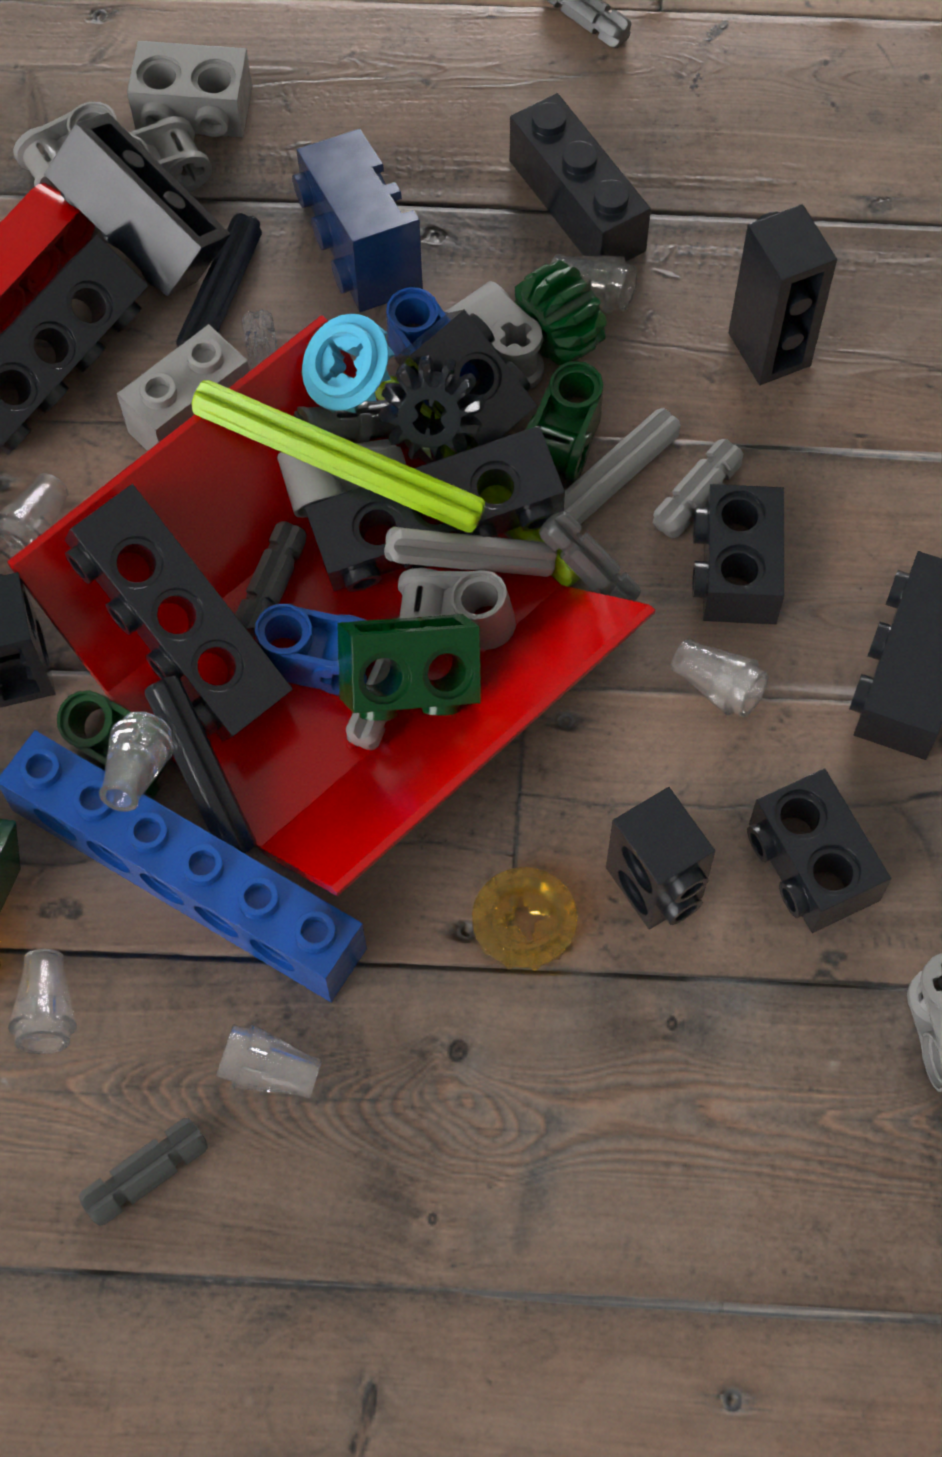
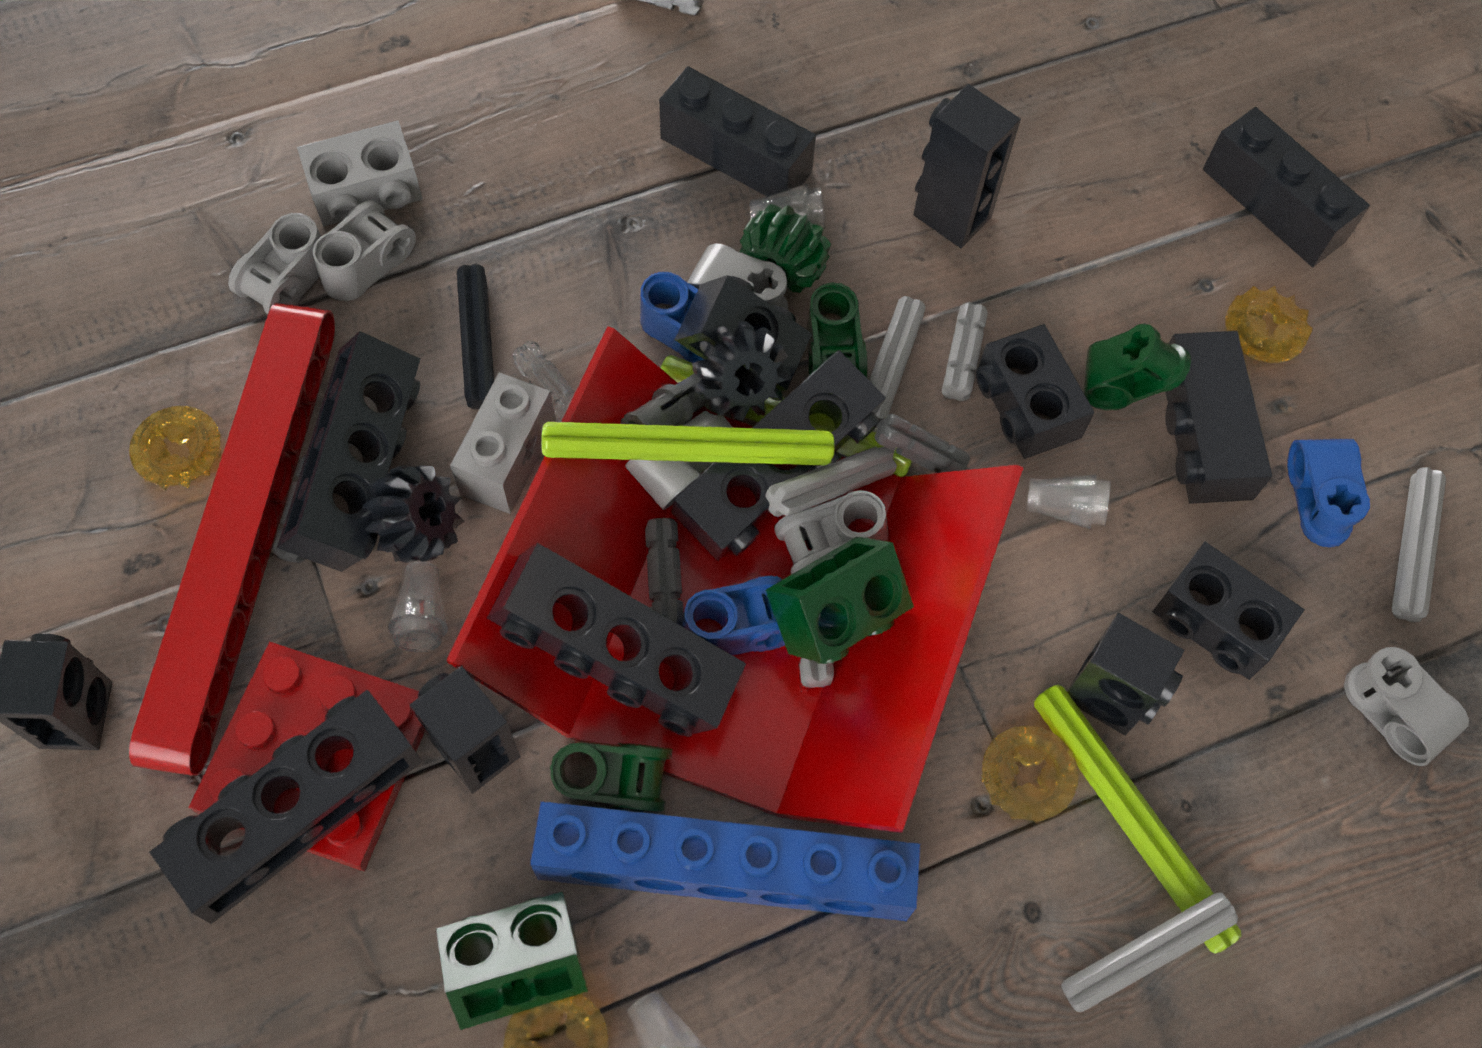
camera: 30 degrees left, 0 degrees up
(44, 429) = (413, 513): none -> black gear
(135, 756) = (653, 788): clear cone -> none
(136, 203) = (375, 290): brick -> none
(200, 764) = (697, 764): black axle -> none
(266, 1063) = (888, 1004): clear cone -> none
(325, 366) = (632, 369): medium azure gear -> none
(358, 220) = (573, 232): dark blue wedge -> none
(541, 1131) = (1149, 952): none -> light grey axle
(609, 1010) = (1129, 807): none -> lime axle
(854, 570) = (1133, 368): none -> dark green piece

